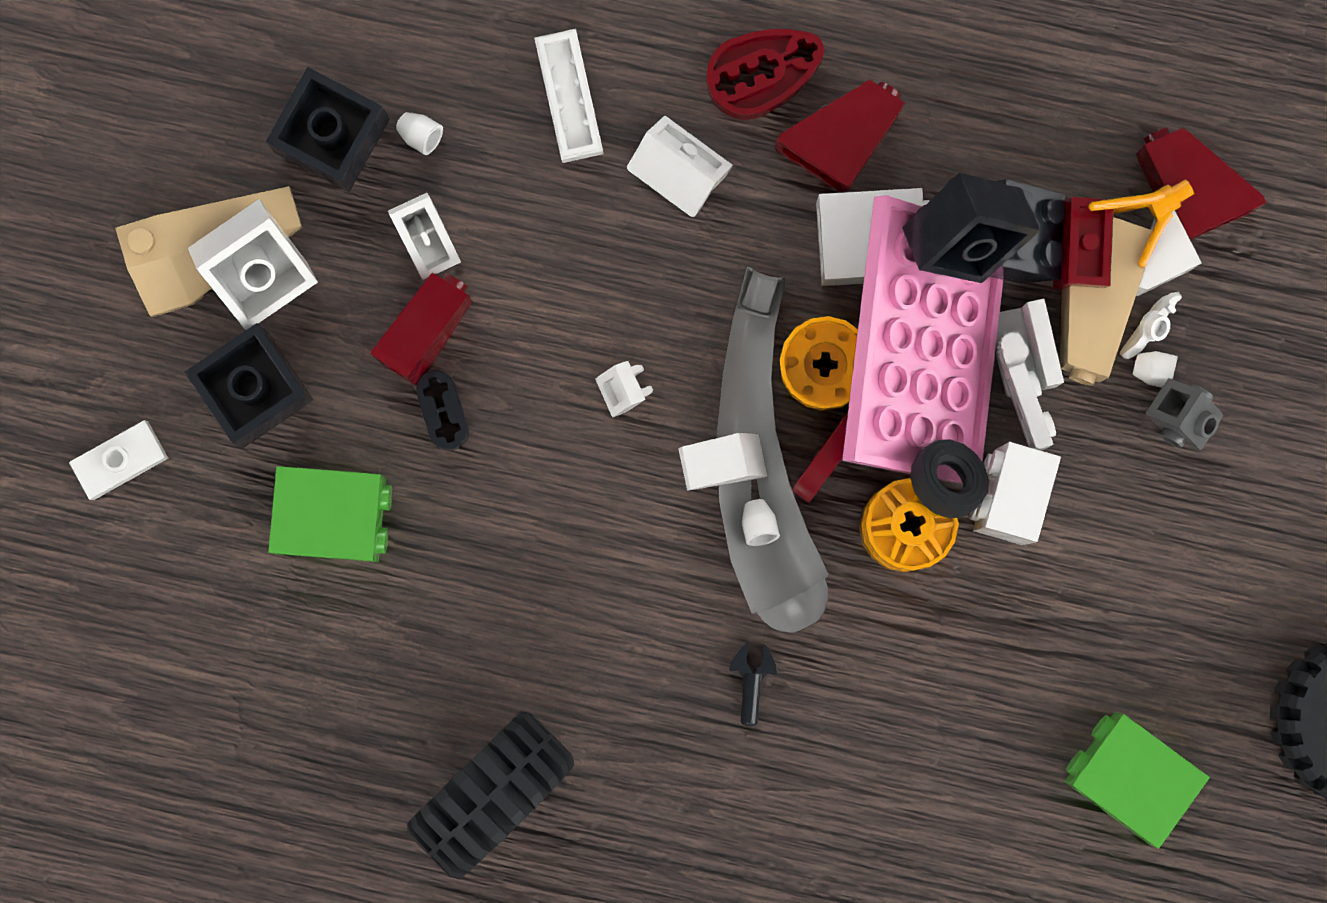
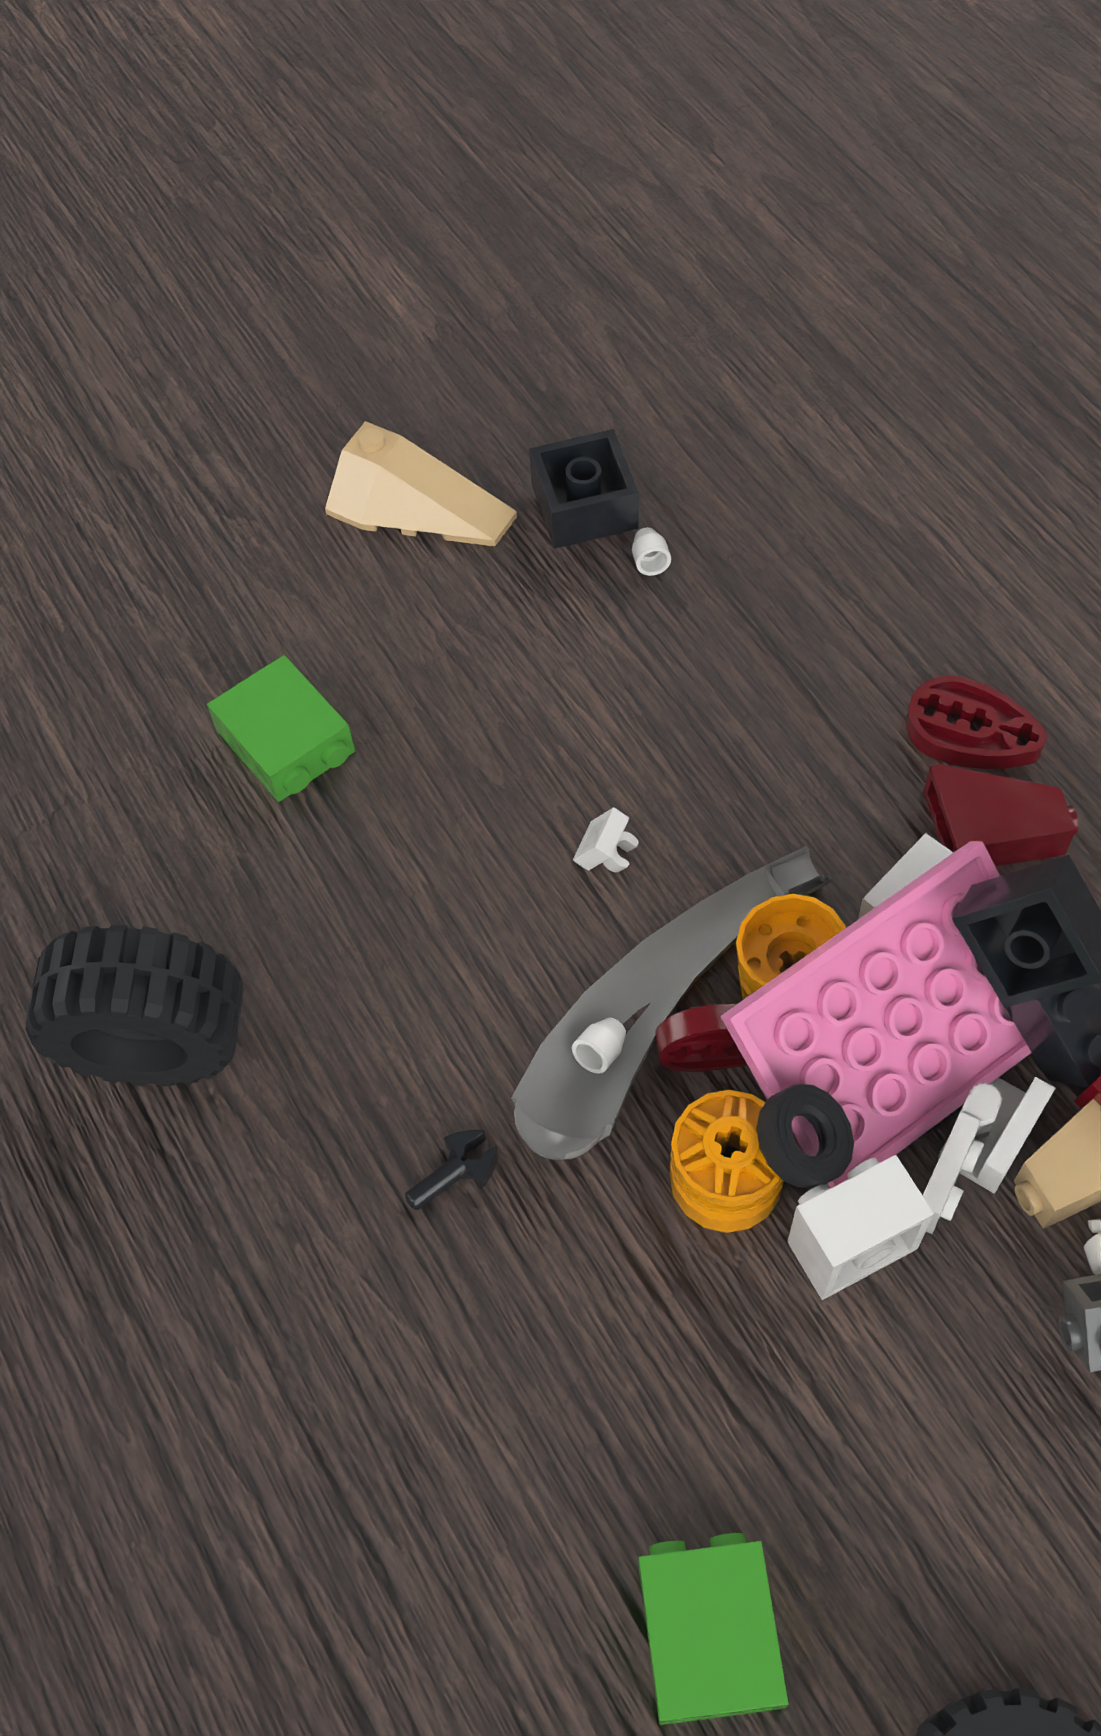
camera: 50 degrees right, 25 degrees down
(118, 460) = (191, 574): white plate -> none
(249, 386) = (331, 593): black brick -> none
(252, 265) = (427, 517): white brick -> none
(423, 327) = (497, 663): dark red slope -> none
(424, 235) = (575, 607): white slope -> none
(432, 413) = (442, 735): black beam -> none
(569, 95) = (790, 616): white plate -> none
(678, 166) = (827, 729): white panel -> none
(722, 461) = (626, 960): white slope -> none

